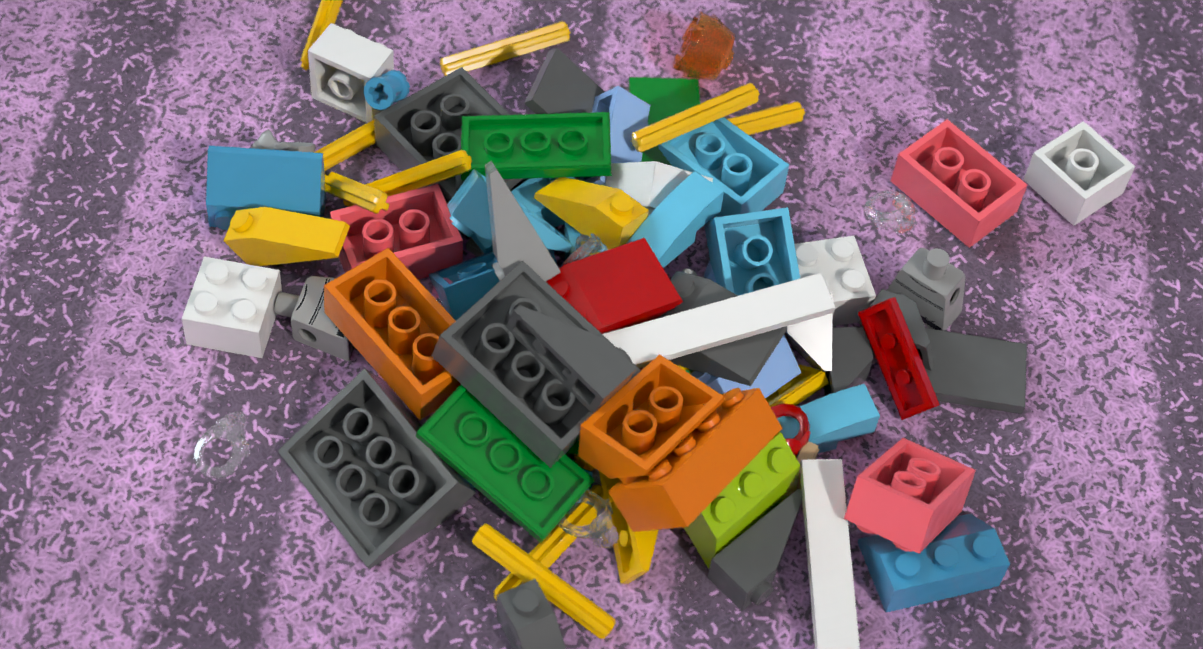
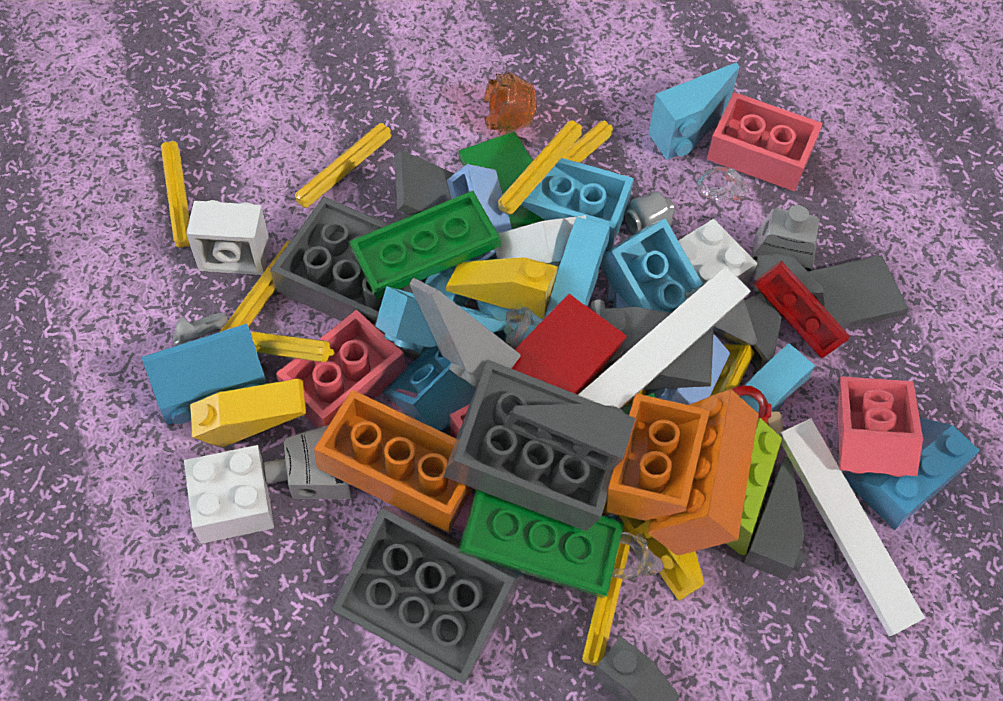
camera: 20 degrees left, 5 degrees up
(233, 429) = (284, 610): clear piece -> none
(386, 90) = (271, 242): dark azure bush -> none
(423, 174) = (339, 309): yellow axle -> none
(553, 587) = (612, 628): yellow axle -> none
(802, 207) = (648, 210): none -> light grey head
(892, 119) = (690, 110): none -> medium azure slope
(1078, 173) = (848, 97): white brick -> none

